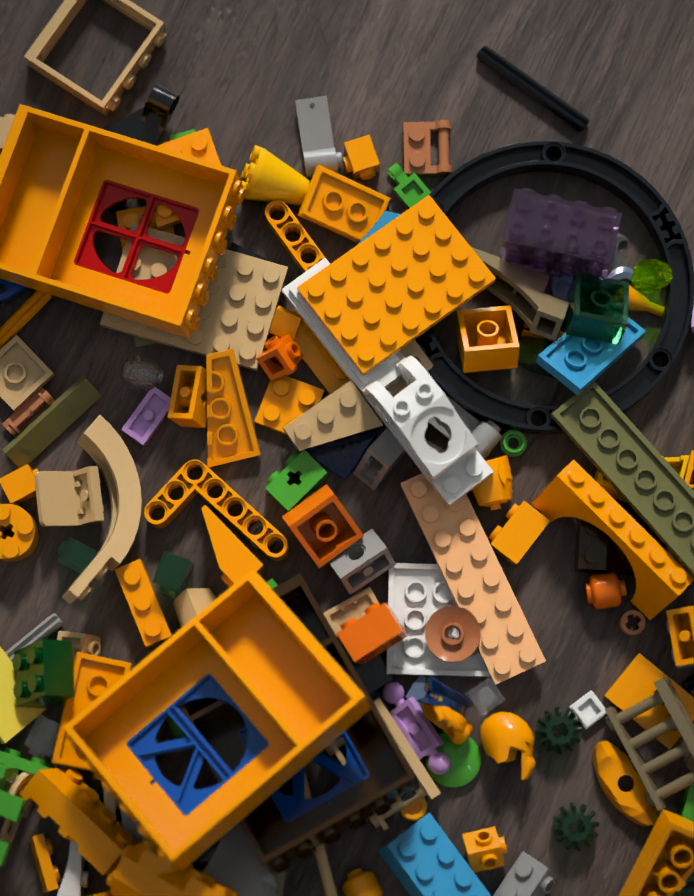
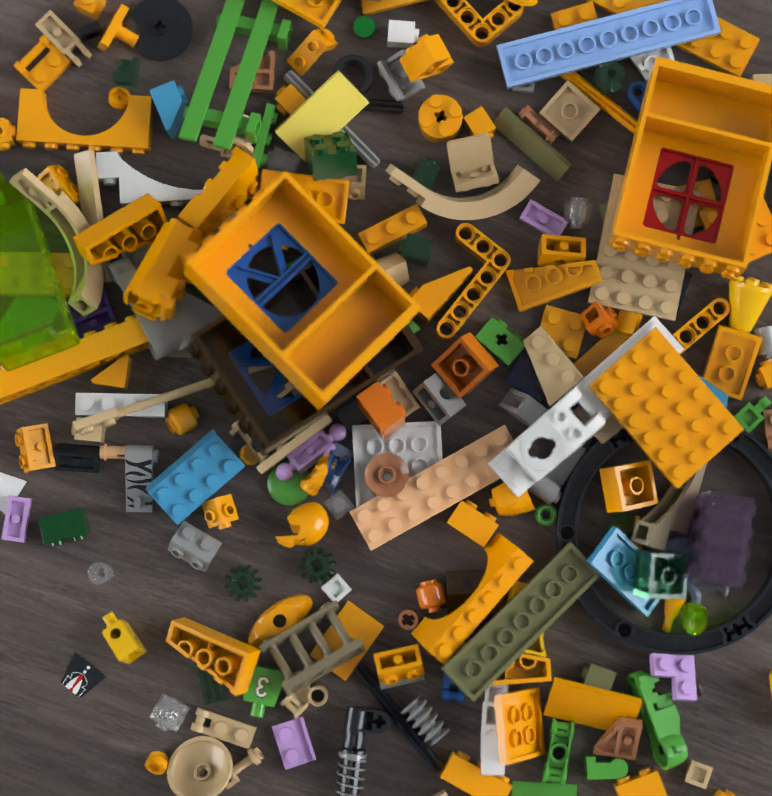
camera: 90 degrees right, 5 degrees up
(41, 851) = (178, 176): light orange plate -> none

